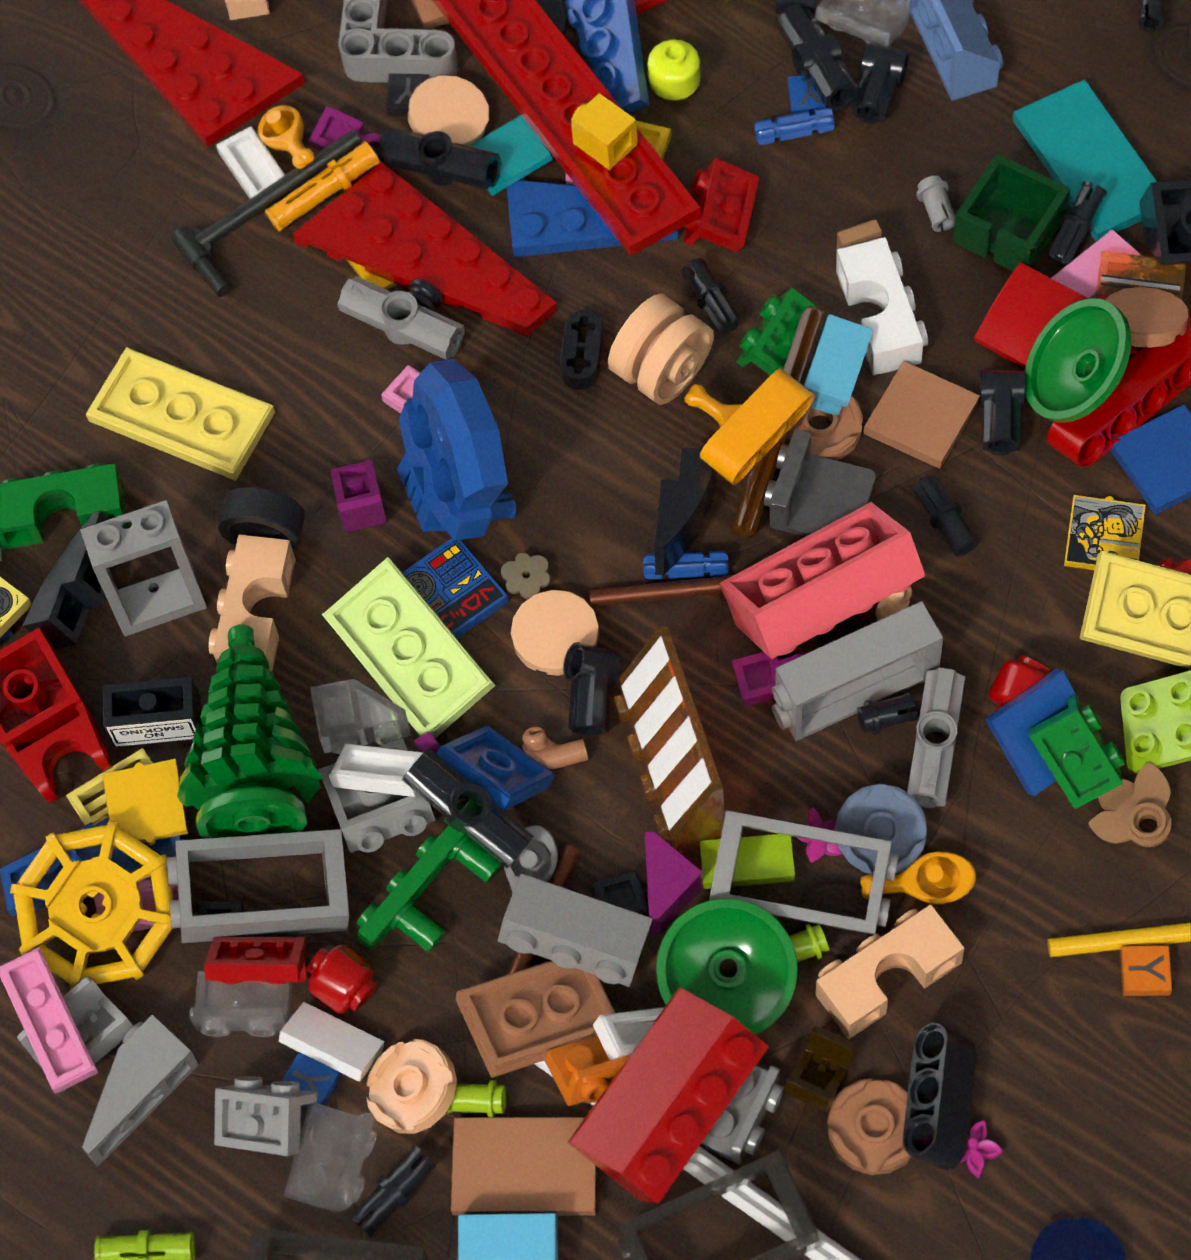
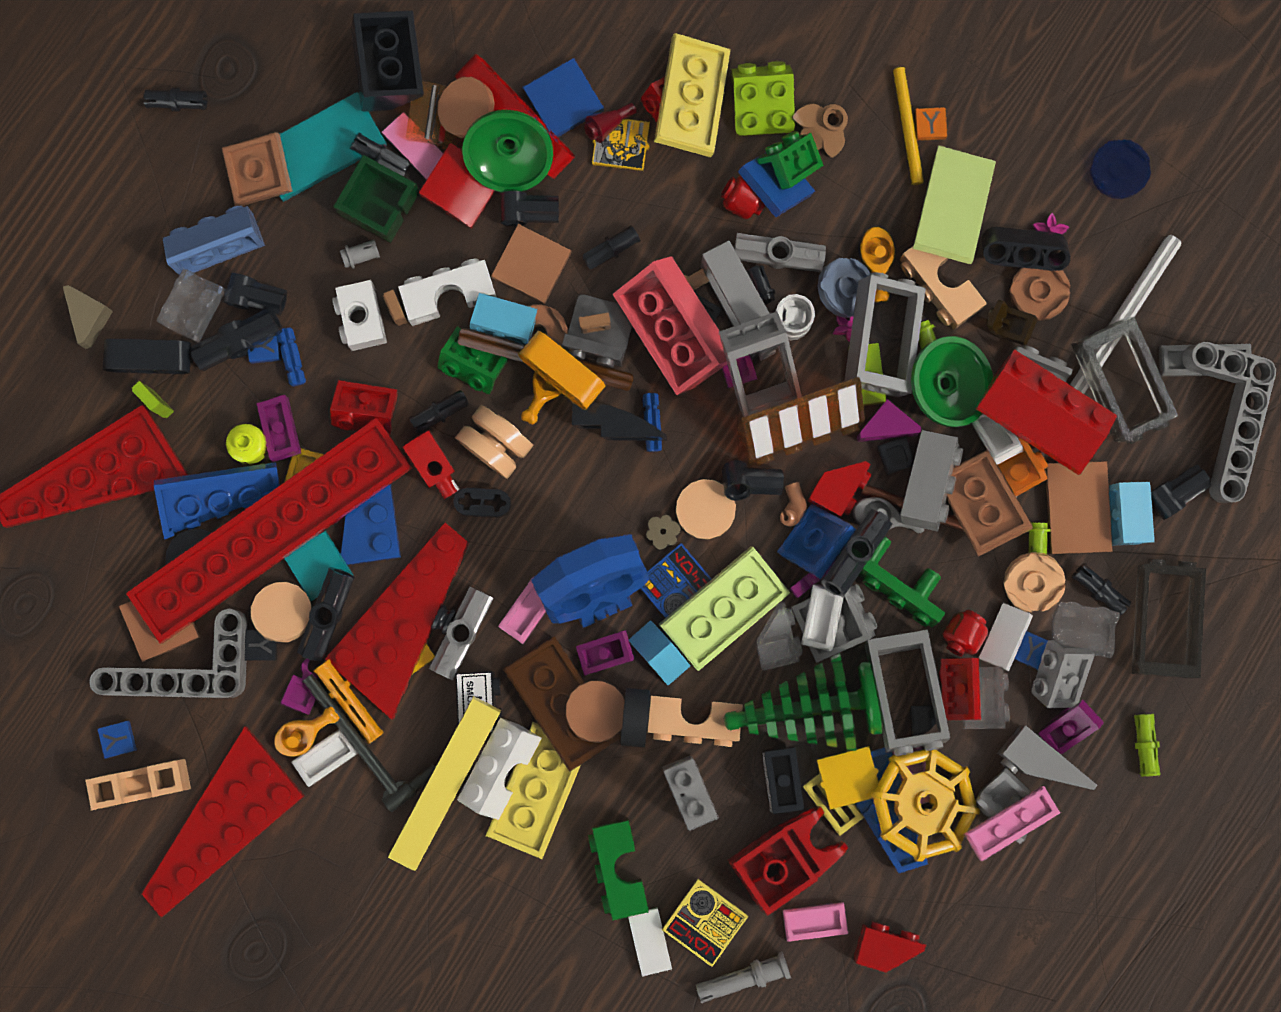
camera: 100 degrees left, 20 degrees up
(68, 593) = (682, 846): black slope -> none
(184, 1129) = (1070, 727): none -> magenta slope
(200, 290) = (444, 783): none -> light yellow tile
(240, 363) = (506, 747): none -> white arch
(278, 464) = (595, 711): none -> nougat tile
(295, 436) = (545, 684): none -> reddish brown tile
(304, 335) = (478, 684): none -> brick
(347, 561) = (659, 652): none -> medium azure slope
(571, 805) = (837, 488): none -> red slope
(604, 131) = (316, 489): yellow brick -> none
(637, 273) = (425, 450): none -> red torso
(656, 591) = (671, 431): copper bar -> none
(695, 108) = (279, 428): none -> magenta plate
(797, 670) = (751, 338): none -> light grey window
(829, 481) = (595, 323): none -> medium nougat tile
(830, 214) = (359, 297): none -> white brick
(834, 750) = (796, 315): none -> white wheel
(1009, 987) = (954, 205): none -> yellowish green tile
(1054, 81) = (257, 169): none -> nougat tile
(1130, 504) = (601, 125): none -> dark red cone

